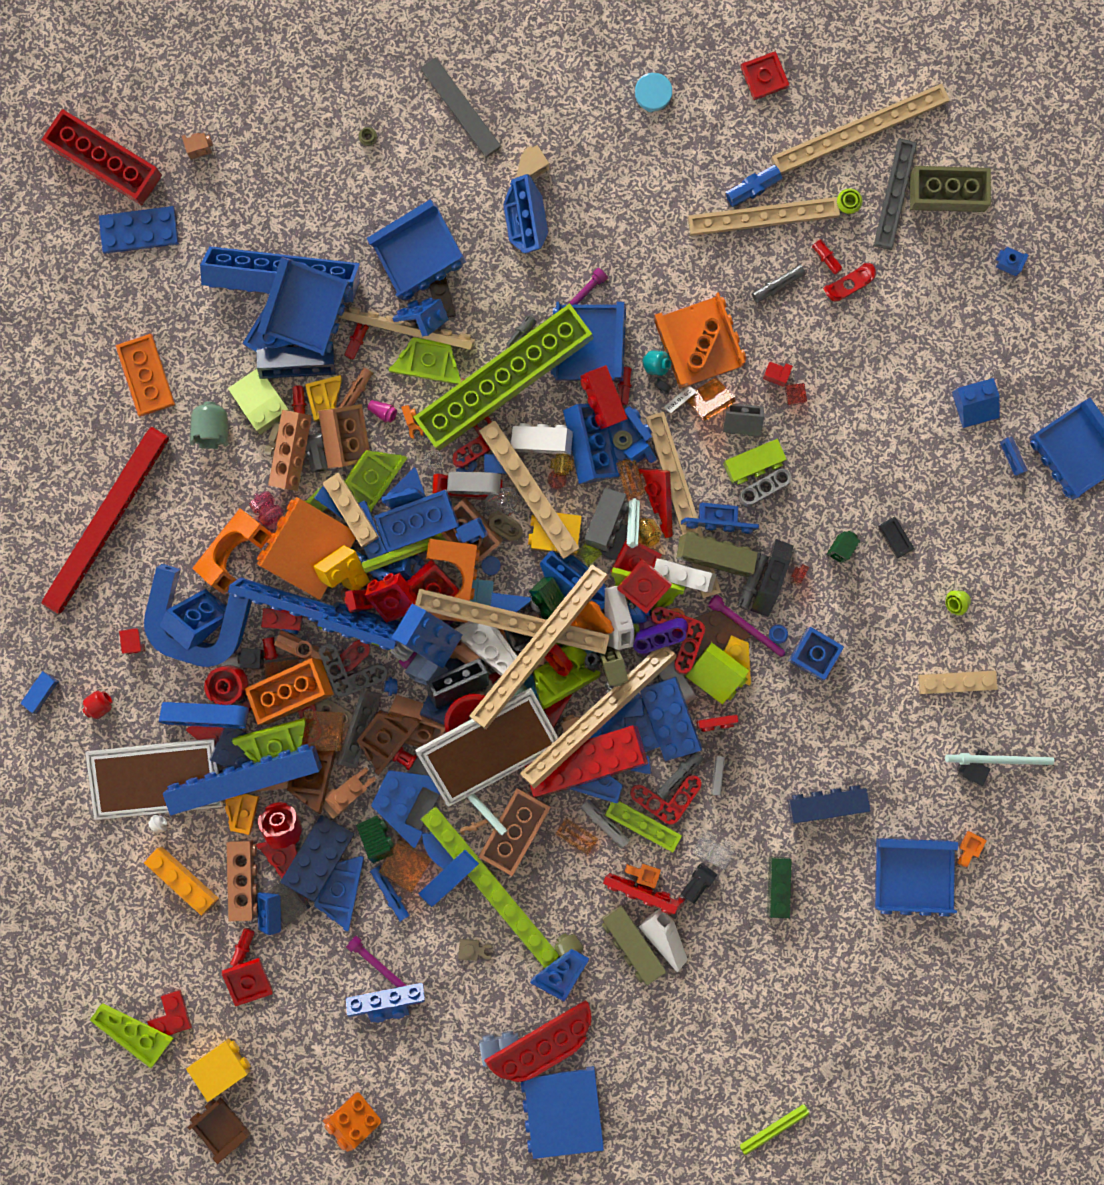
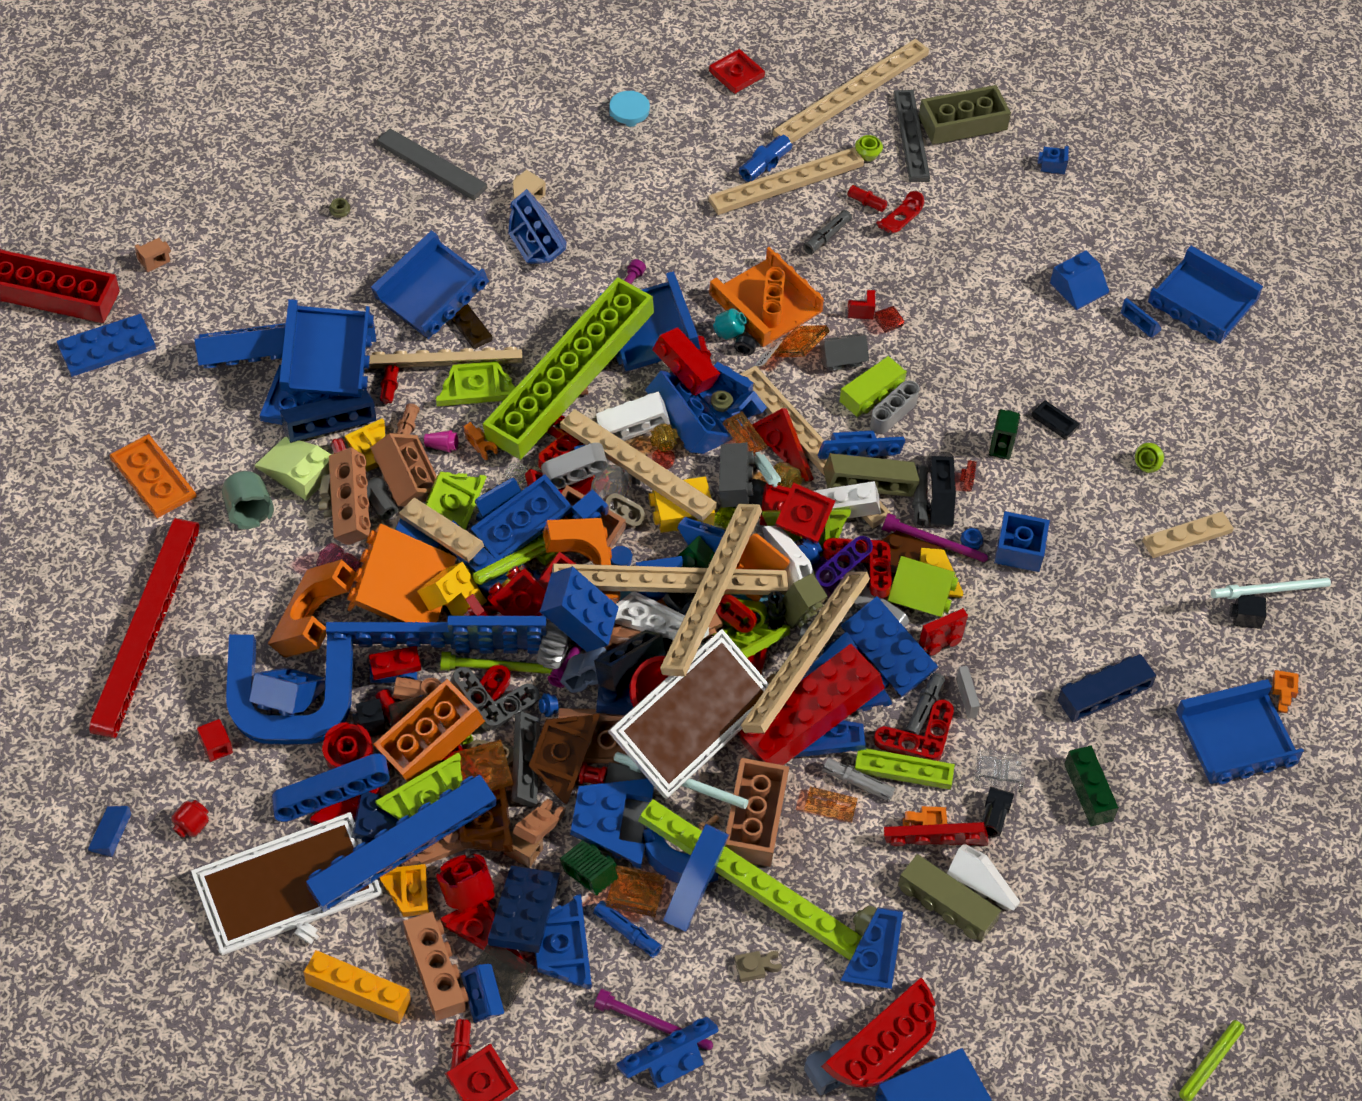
camera: 20 degrees left, 30 degrees down
(428, 314) = (467, 332): blue bracket -> none

